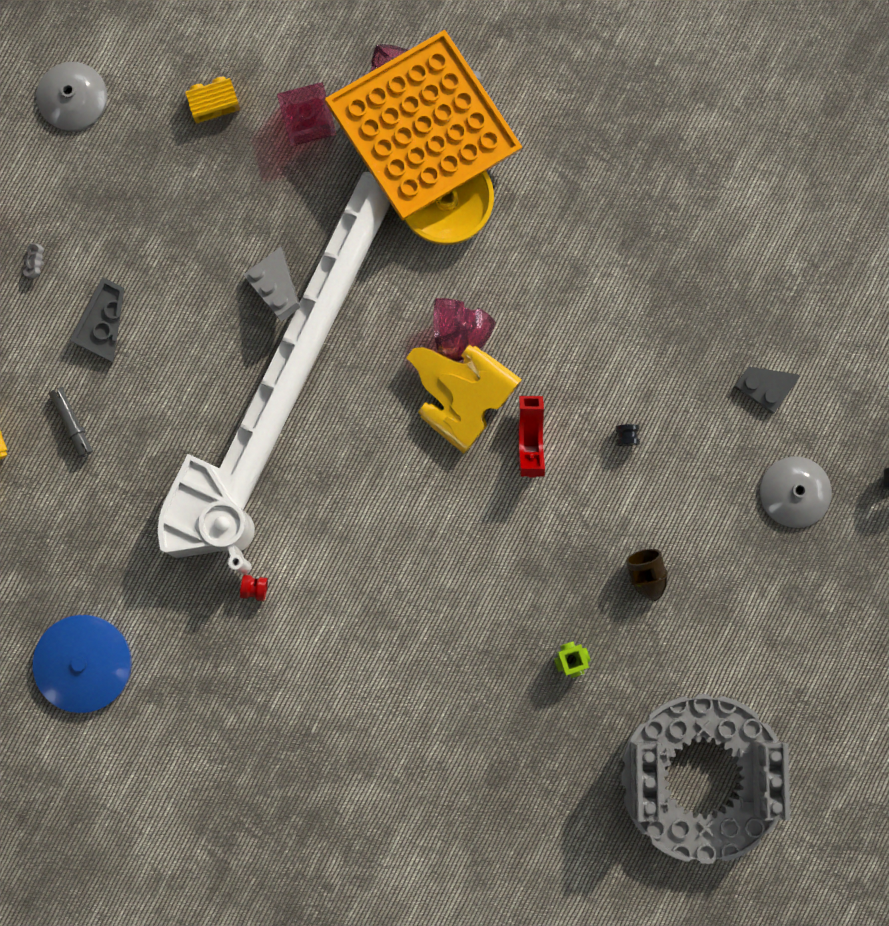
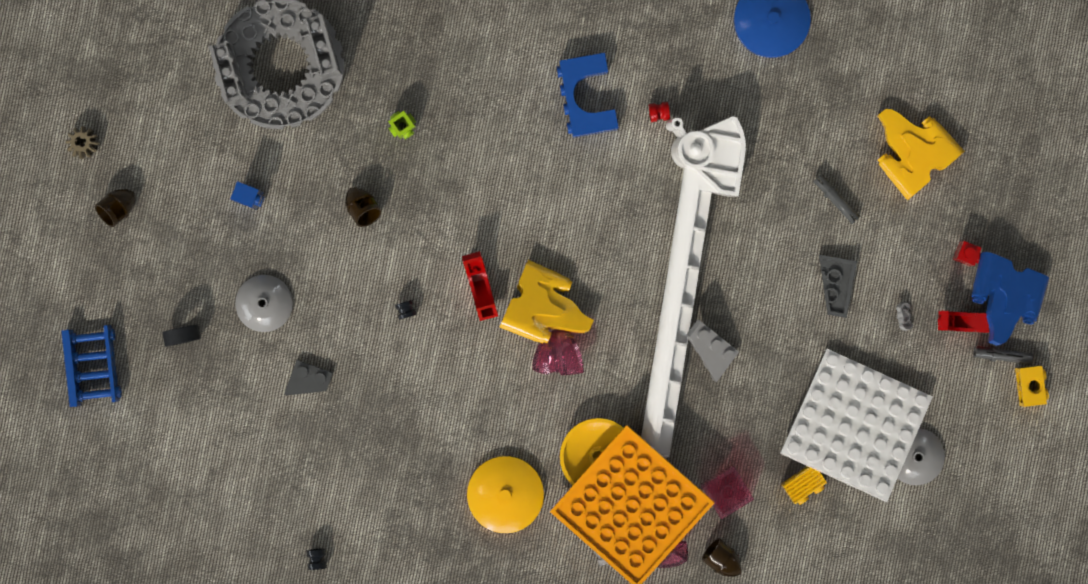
camera: 170 degrees right, 5 degrees up
(129, 148) = (856, 425): none -> white plate
(335, 38) = (722, 559): none -> dark brown helmet
(347, 665) = (572, 72): none -> blue arch
(568, 187) = (505, 494): none -> yellow dish
(784, 625) = (247, 196): none -> blue brick
(811, 173) = (316, 559): none -> black wheel

